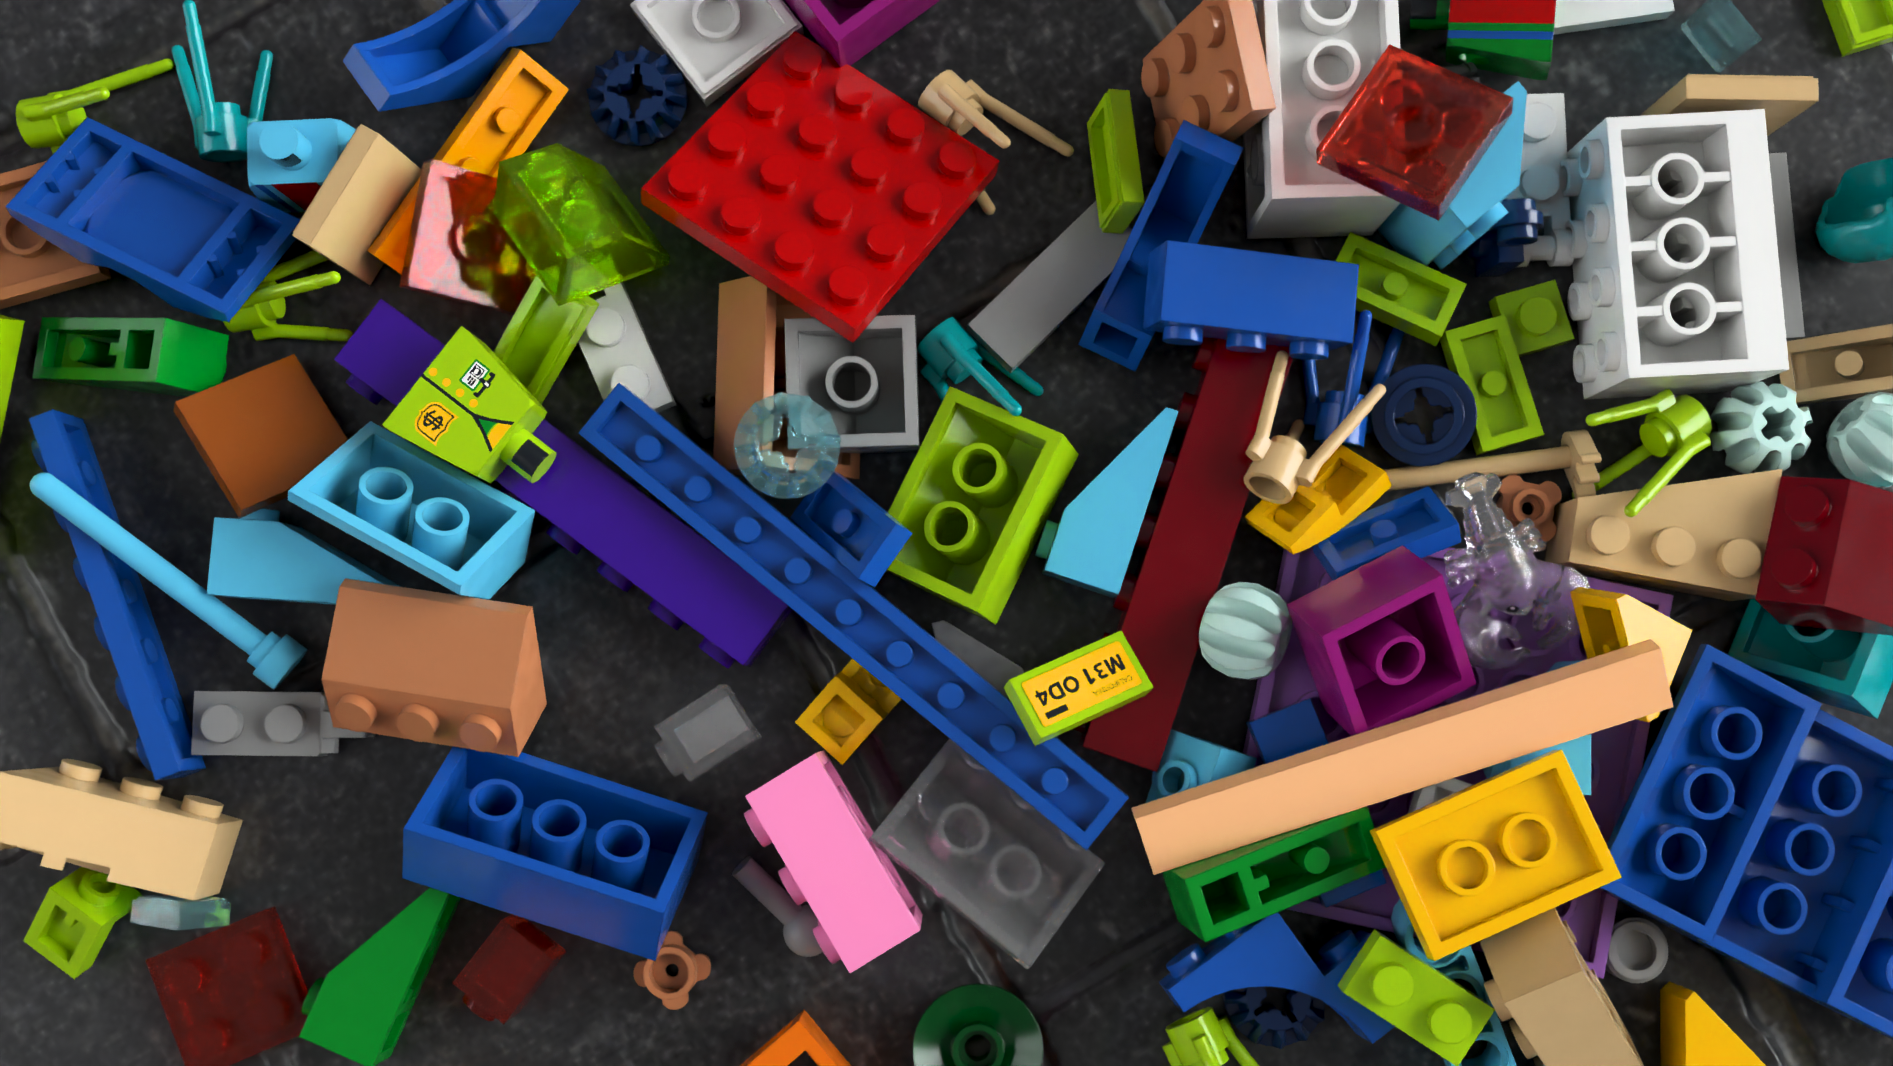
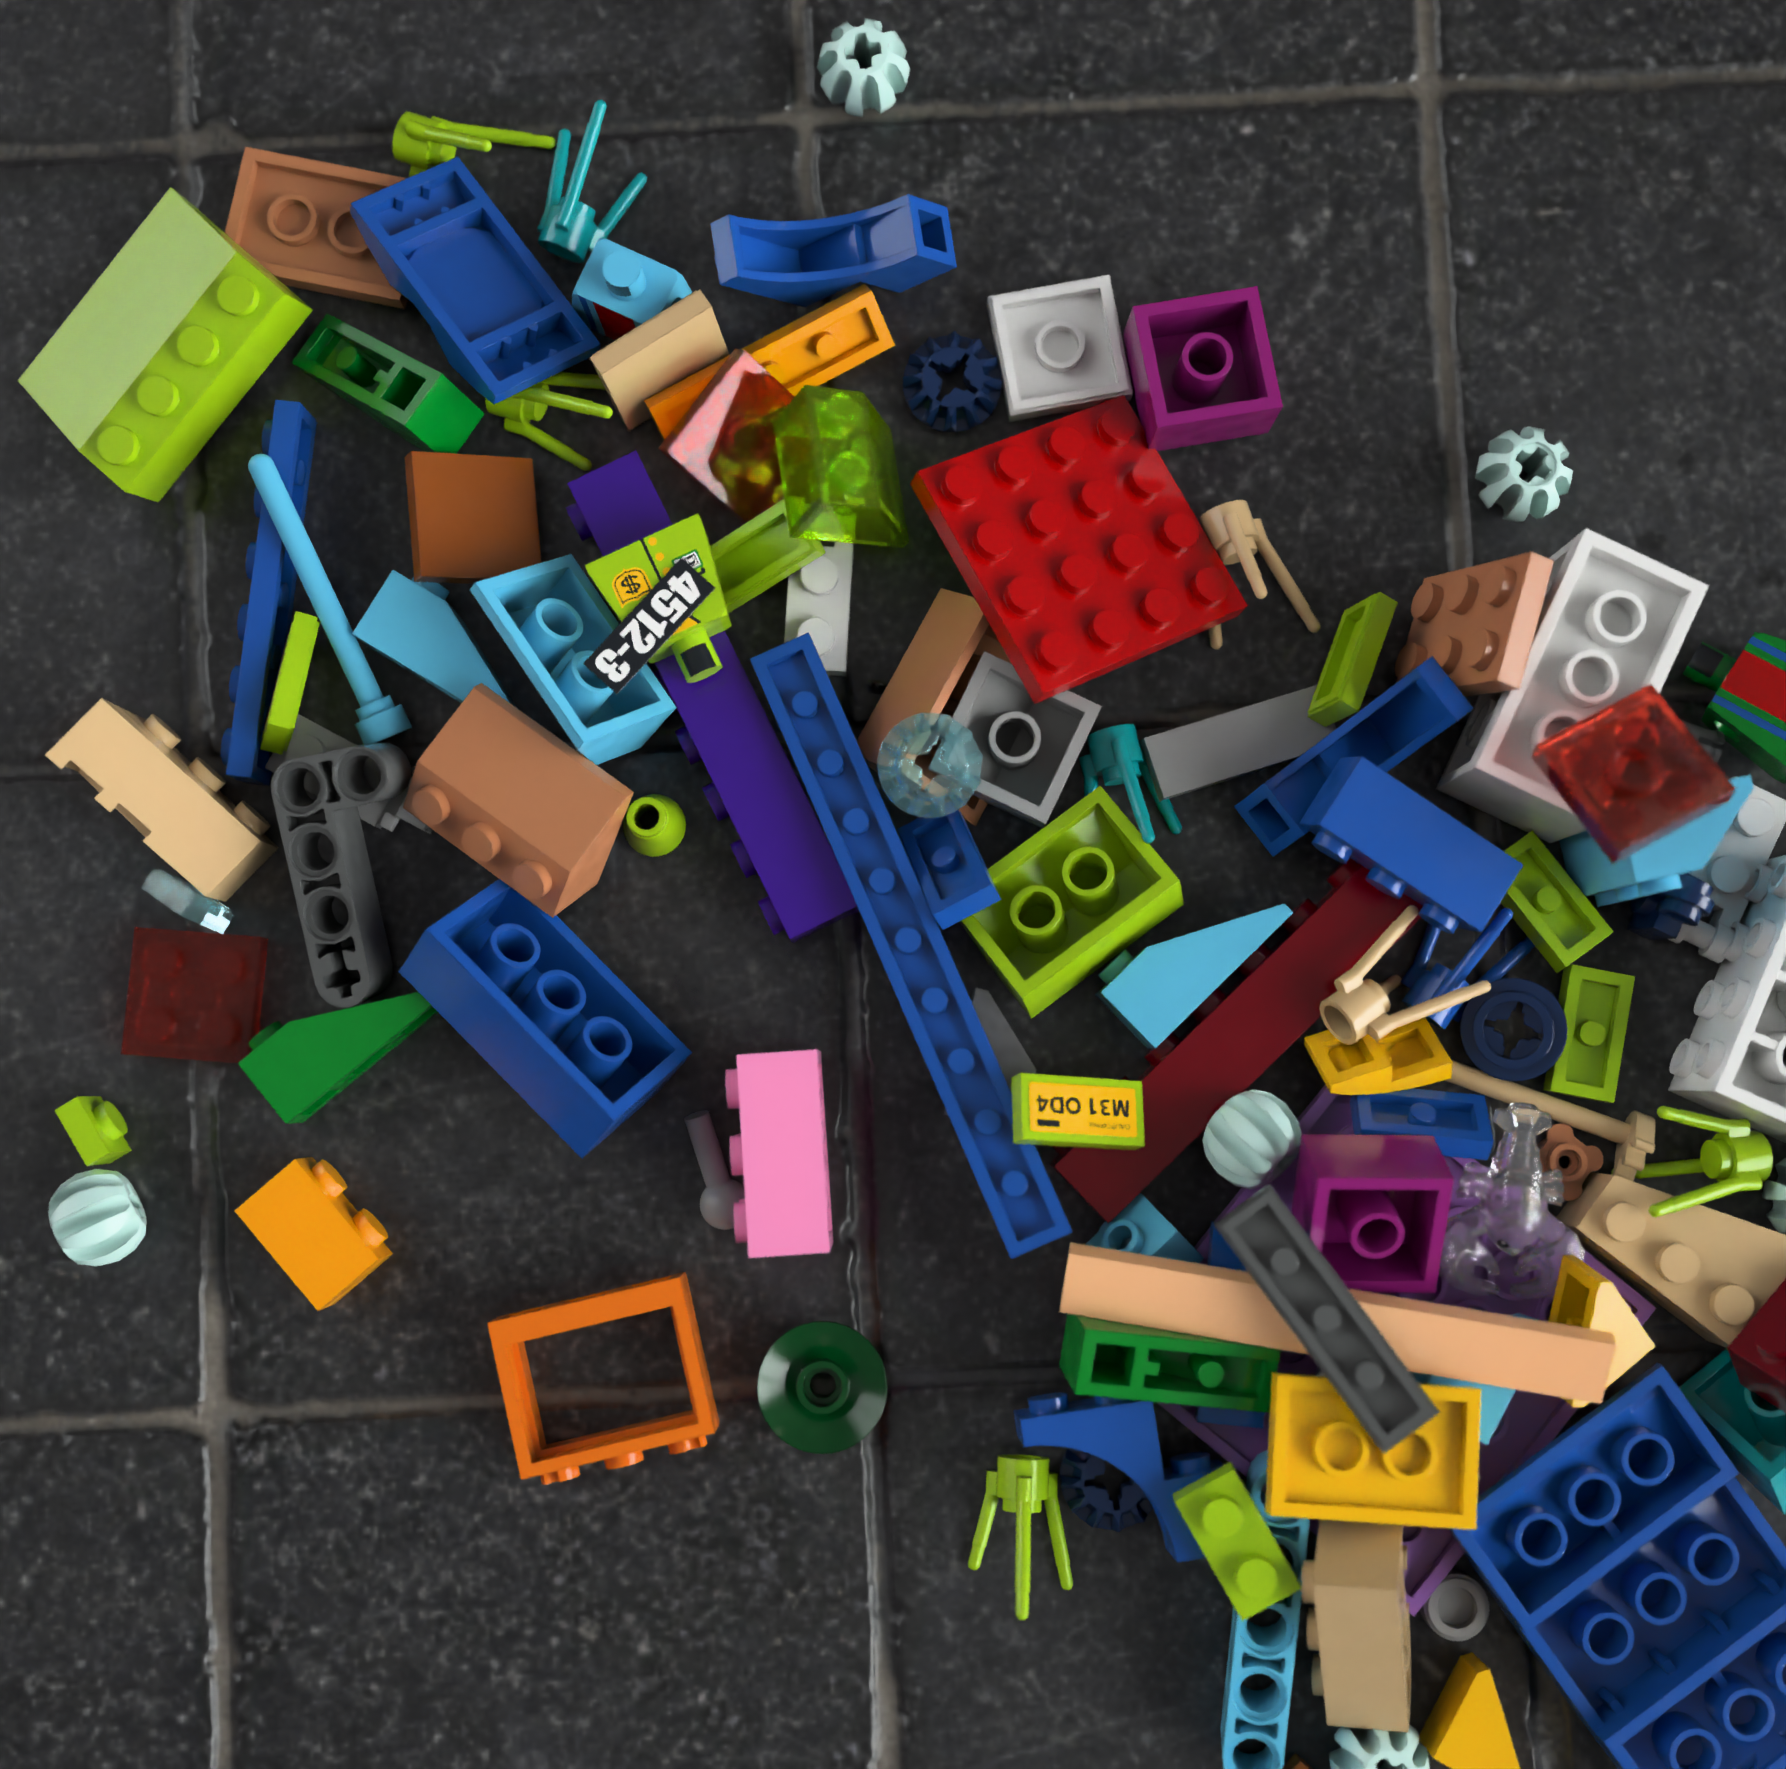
camera: 25 degrees right, 0 degrees up
(78, 919) = (96, 860): lime bracket -> none
(173, 667) = (290, 683): none -> lime tile
(314, 809) = (348, 875): none -> dark grey beam
(468, 449) = (649, 625): none -> black sticker
(508, 969) = (445, 1099): clear red brick -> none
(583, 630) = (662, 837): none -> lime cone
(672, 989) = (582, 1193): nougat plate -> none
(705, 734) = (724, 982): clear brick -> none
(847, 711) = (861, 1027): yellow slope -> none
(987, 853) = (922, 1216): clear slope -> none
(1393, 758) = (1326, 1318): none -> dark grey tile
(1534, 317) = (1660, 993): lime plate -> none

